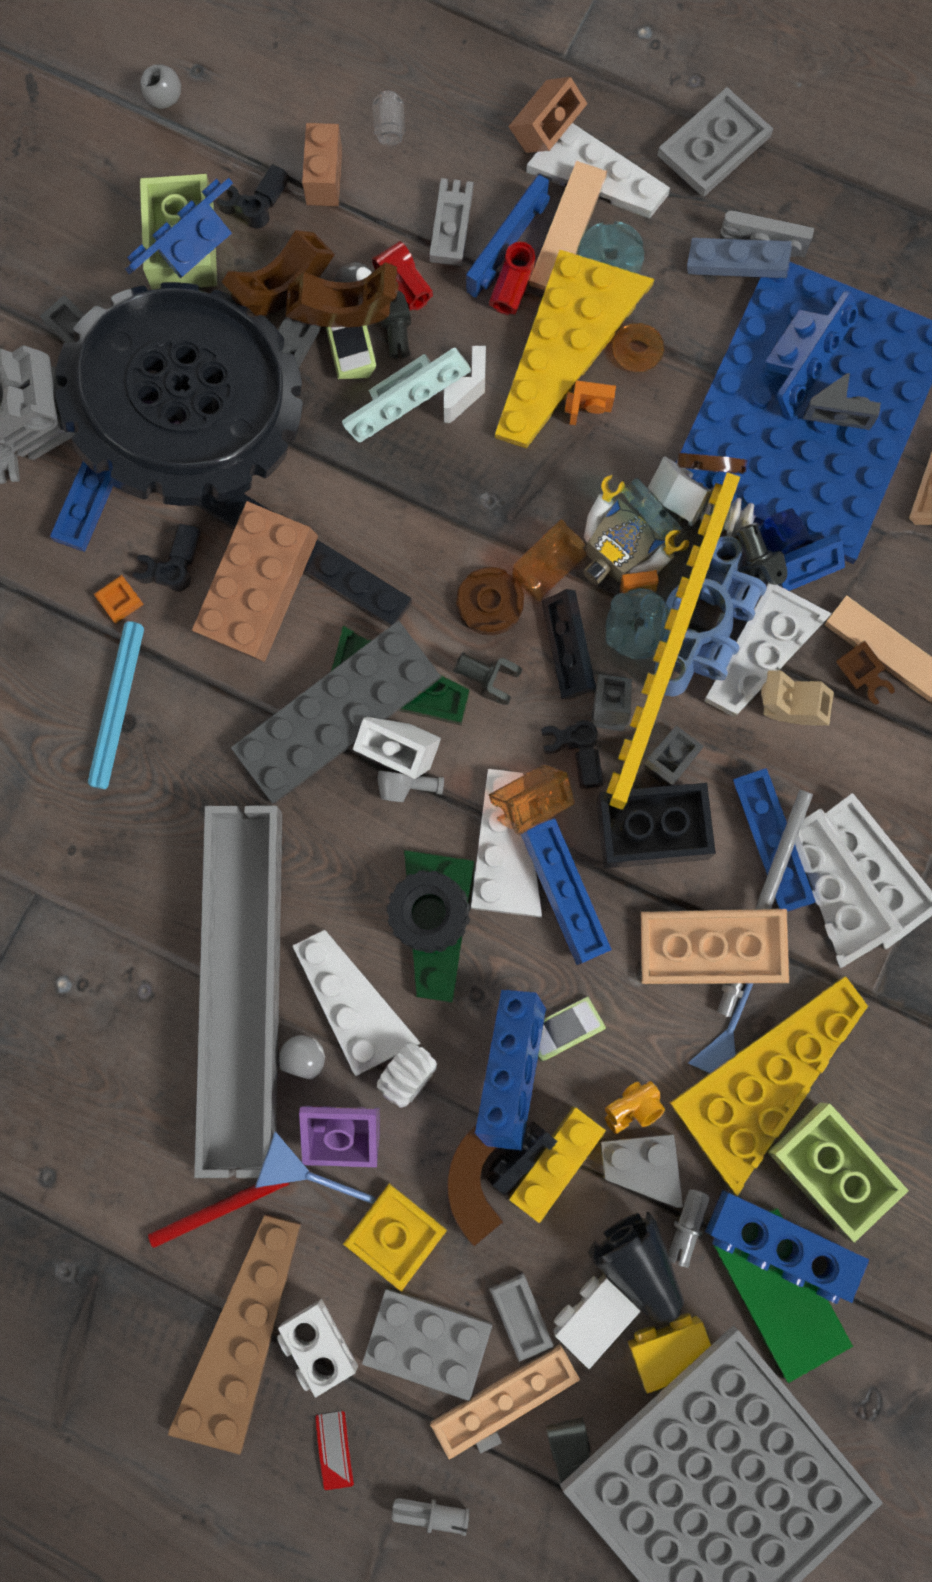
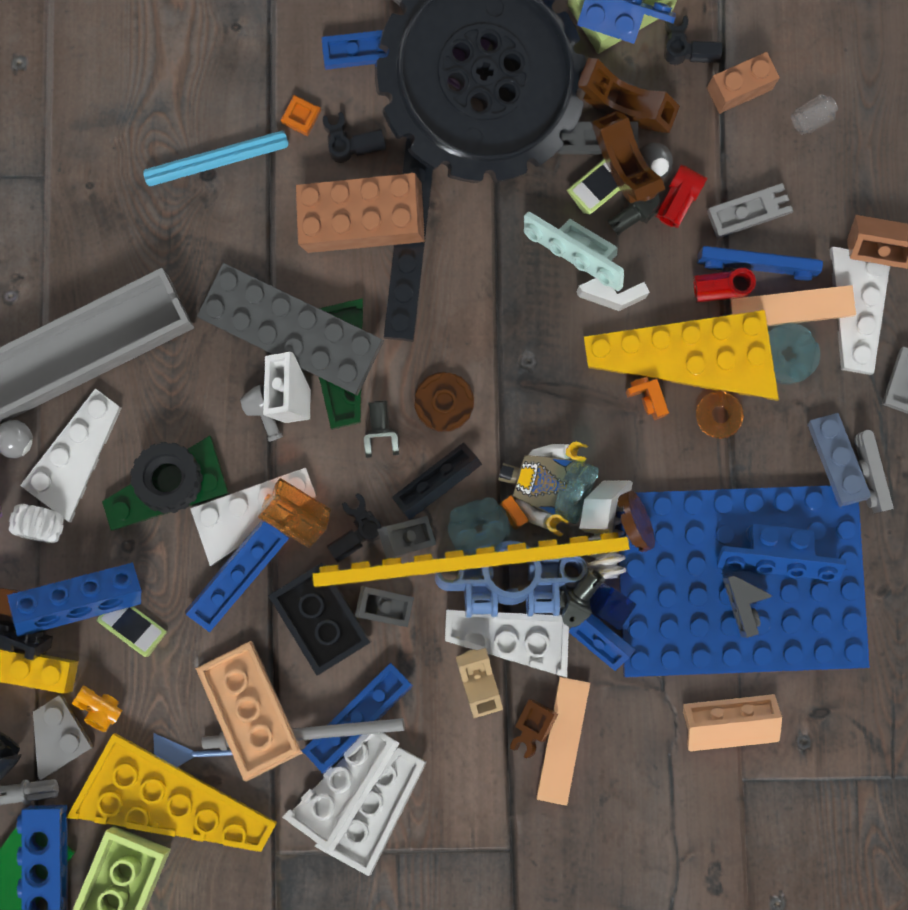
camera: 55 degrees right, 5 degrees up
(549, 560) = (498, 432): clear orange hinge -> none

